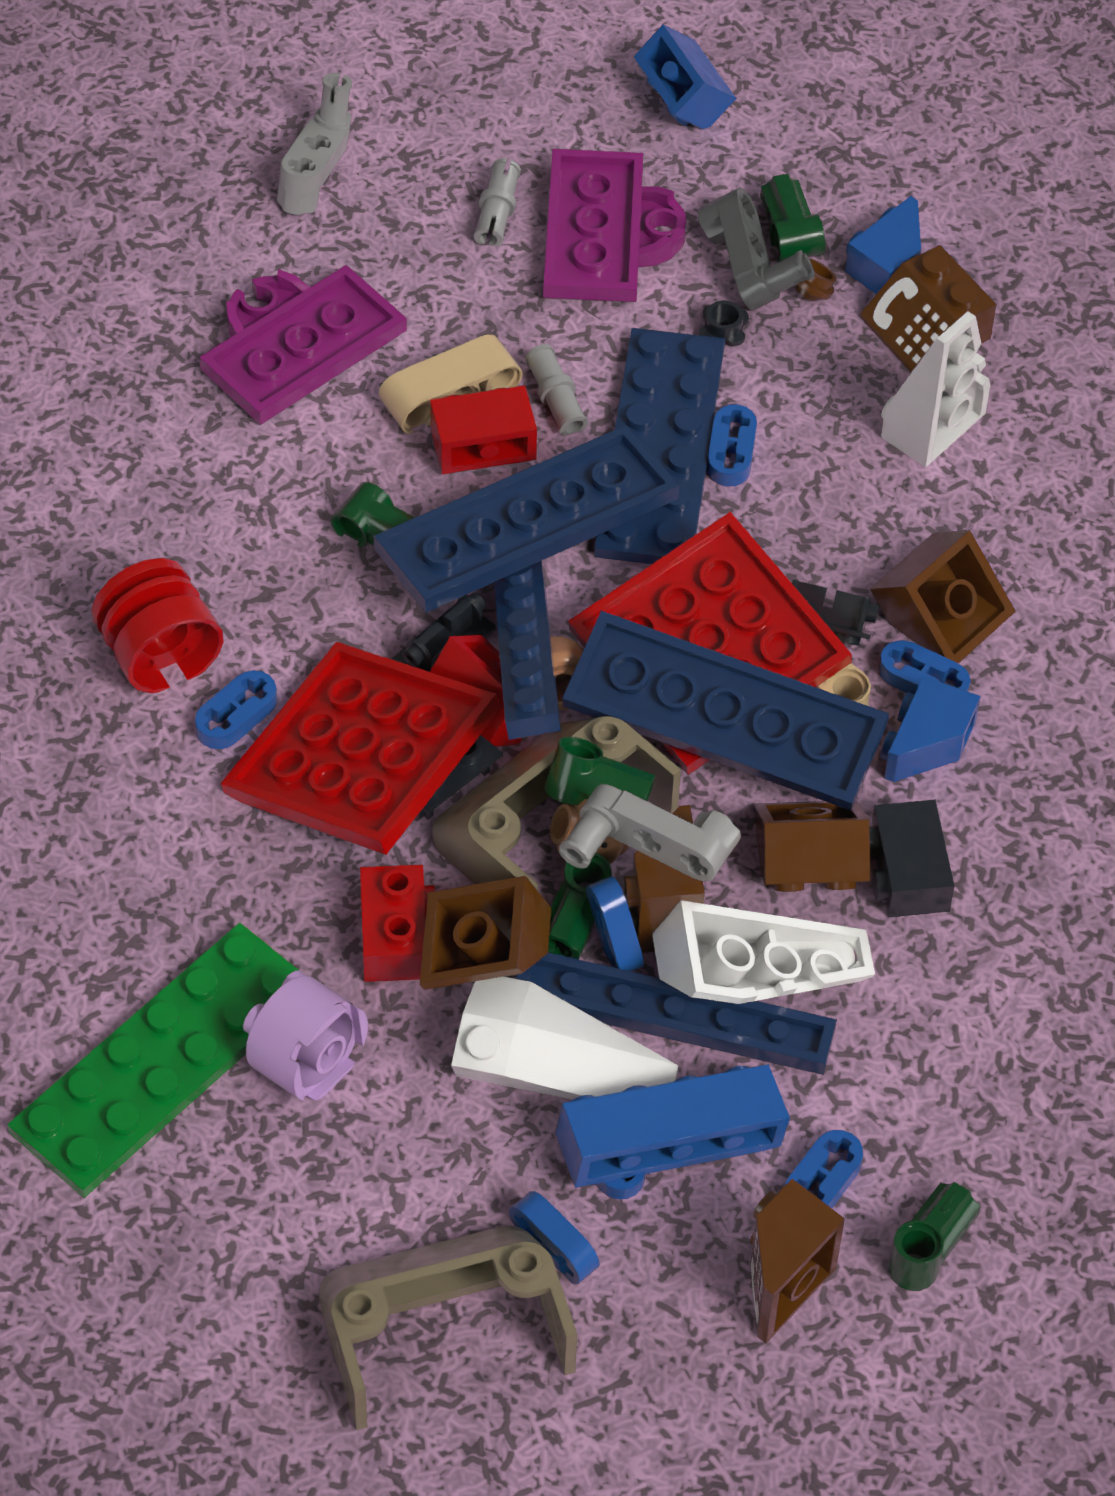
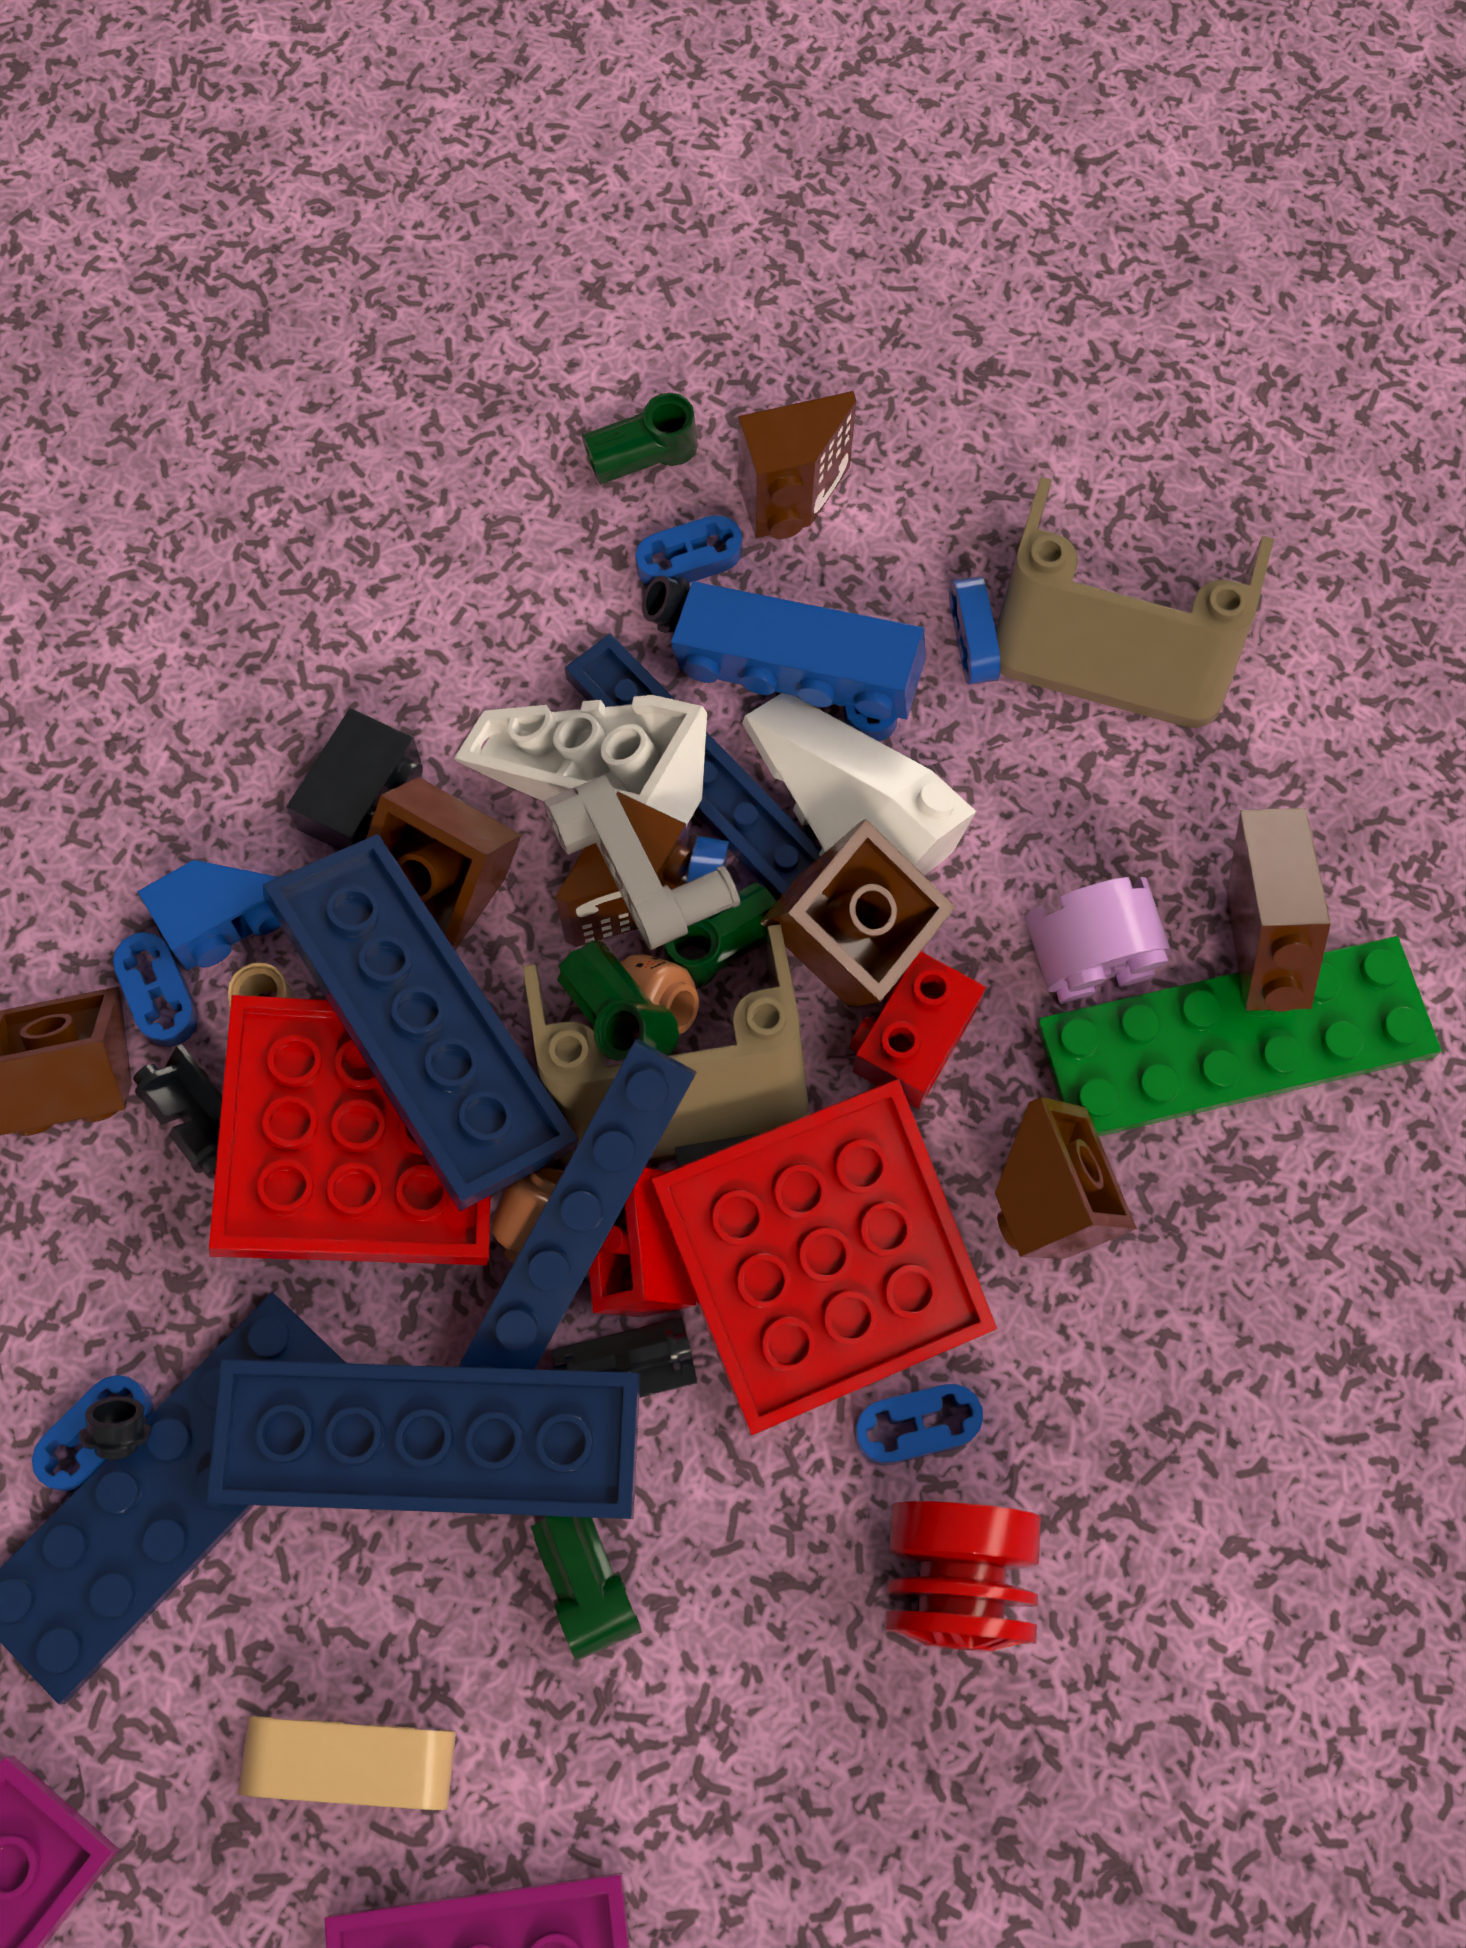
camera: 145 degrees left, 15 degrees up
(185, 1103) = (1277, 909): none -> reddish brown brick
(225, 853) = (1059, 1185): none -> reddish brown slope
(483, 429) = (366, 1644): red brick -> none
(556, 389) = (226, 1662): light grey pin -> none
(724, 437) = (114, 1427): none -> black plate
(806, 1120) = (665, 601): none -> black plate

